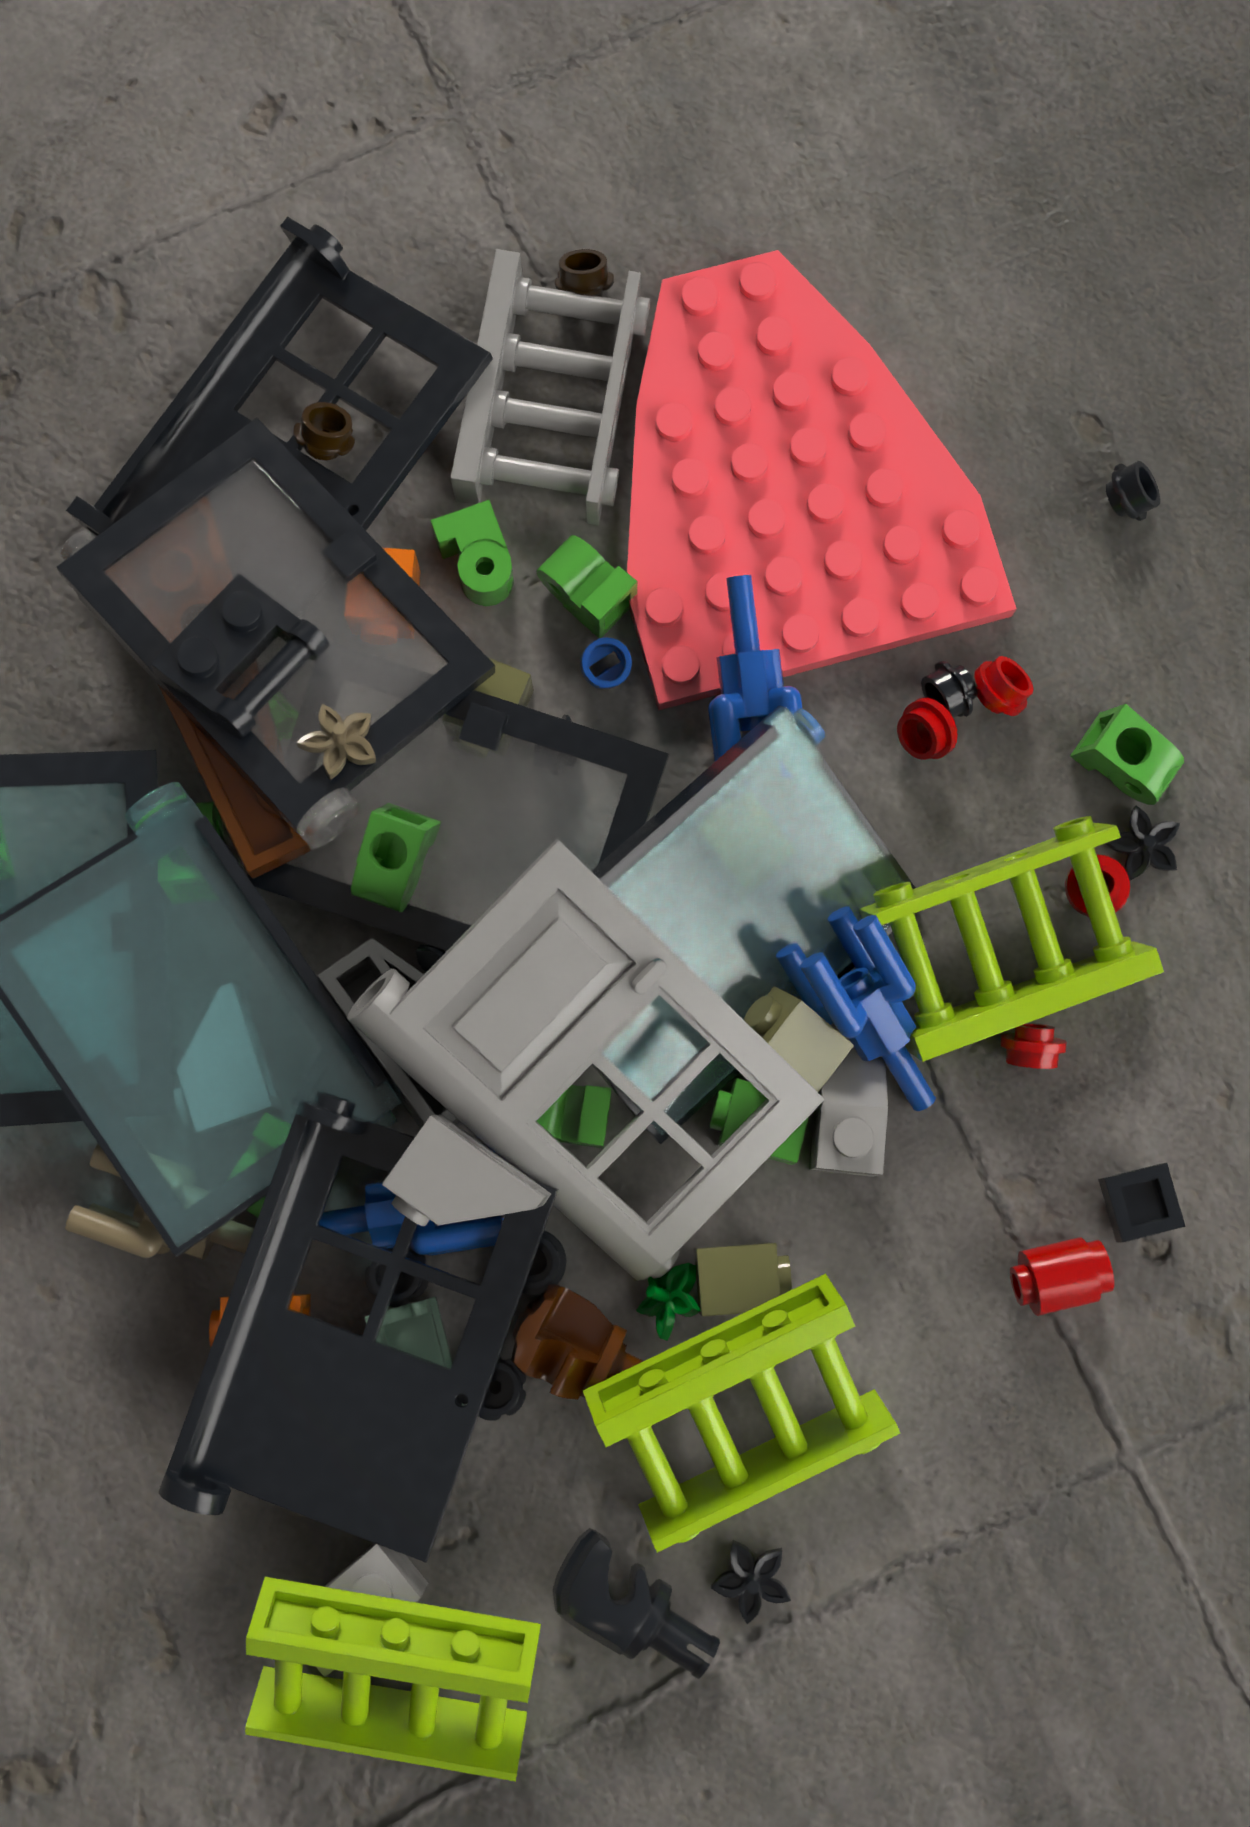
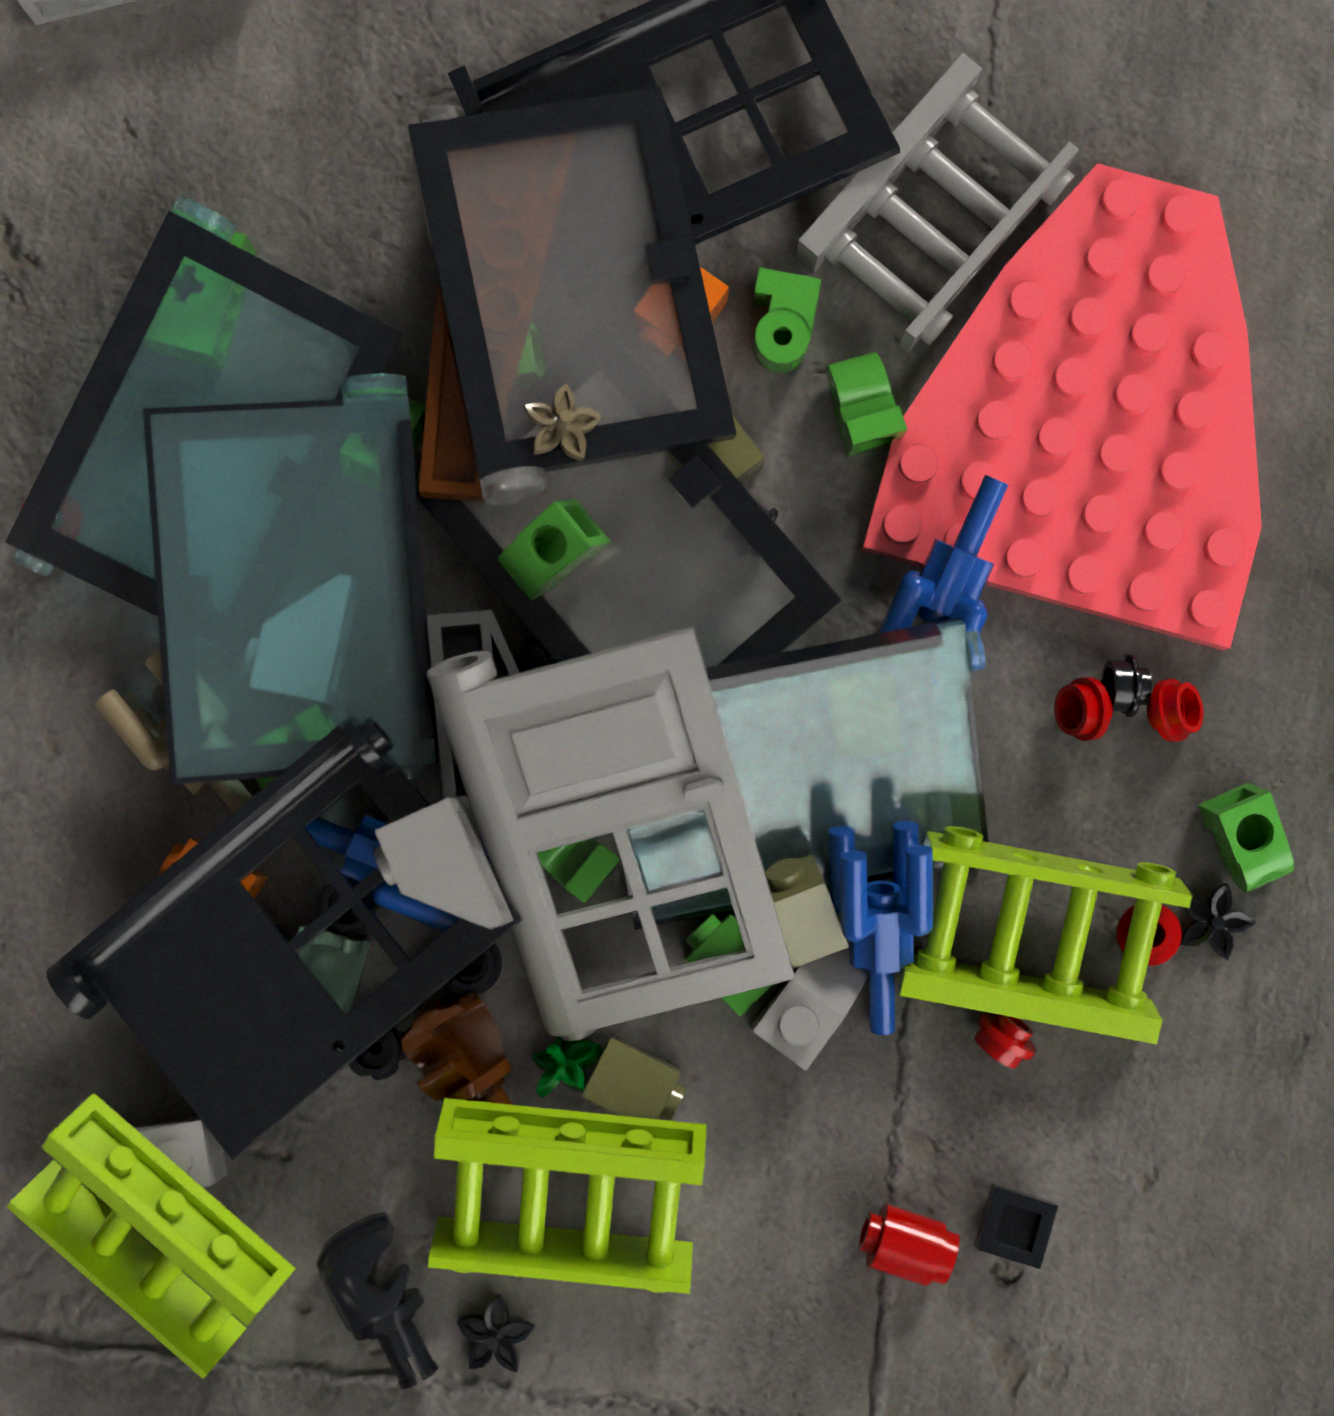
camera: 30 degrees right, 5 degrees up
(225, 643) = (513, 280): black plate -> none
(325, 431) = (713, 133): dark brown plate -> none
(584, 273) = (1030, 117): dark brown plate -> none
(613, 675) = (837, 497): blue hinge -> none

